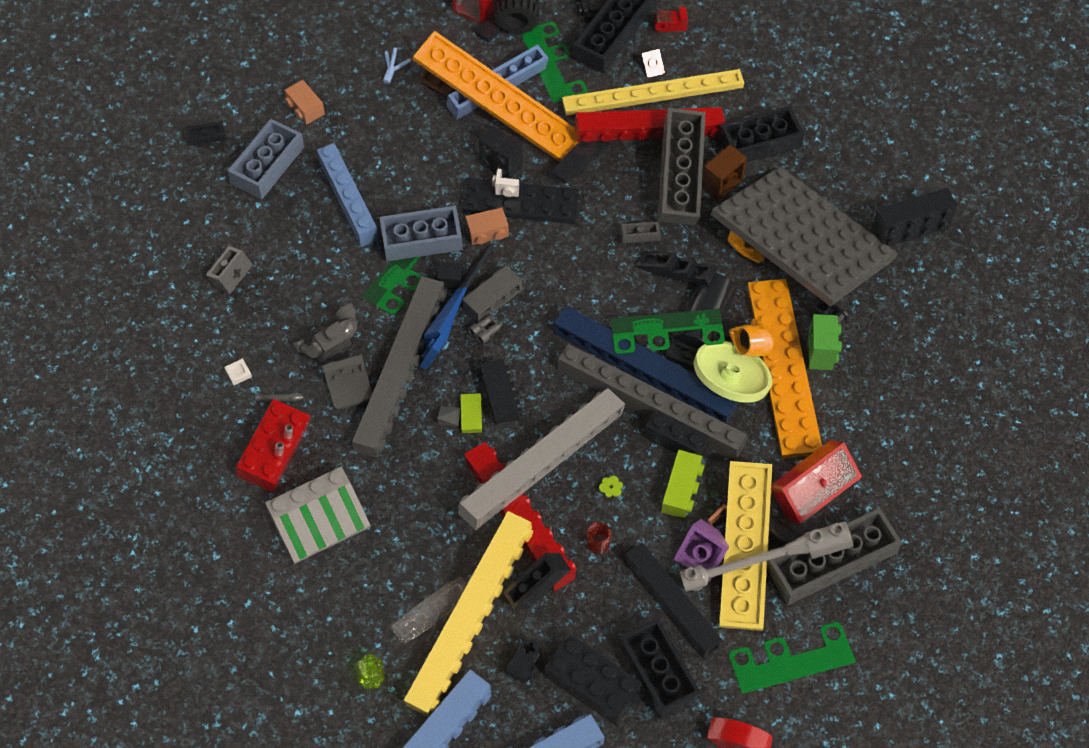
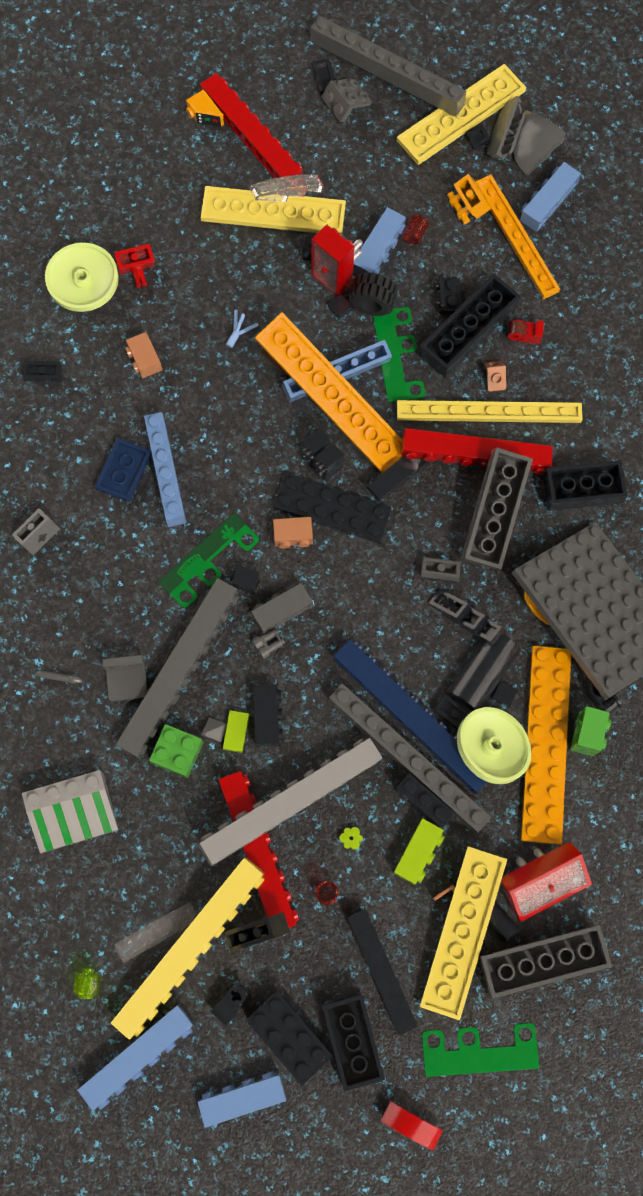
camera: 10 degrees right, 15 degrees up
(228, 45) = (81, 277): none -> yellowish green dish
(238, 372) = (25, 640): white tile -> none
(266, 158) = (94, 414): sand blue brick -> none
(273, 446) = (41, 731): red piece -> none
(278, 24) = (135, 261): none -> red brick
(305, 203) = (123, 470): none -> dark blue plate
(333, 338) = (120, 628): dark grey torso -> none
(415, 439) = (176, 751): none -> bright green brick
(421, 233) = (226, 529): sand blue brick -> none
(439, 330) = (221, 643): blue plate -> none
(505, 186) = (318, 495): white bracket -> none
(661, 324) = (436, 679): piece -> none
(702, 547) = (422, 925): medium lavender slope -> none
(723, 172) = (537, 521): reddish brown brick -> none
(760, 339) = (527, 714): light orange helmet -> none
(817, 543) = (521, 954): light grey bar -> none

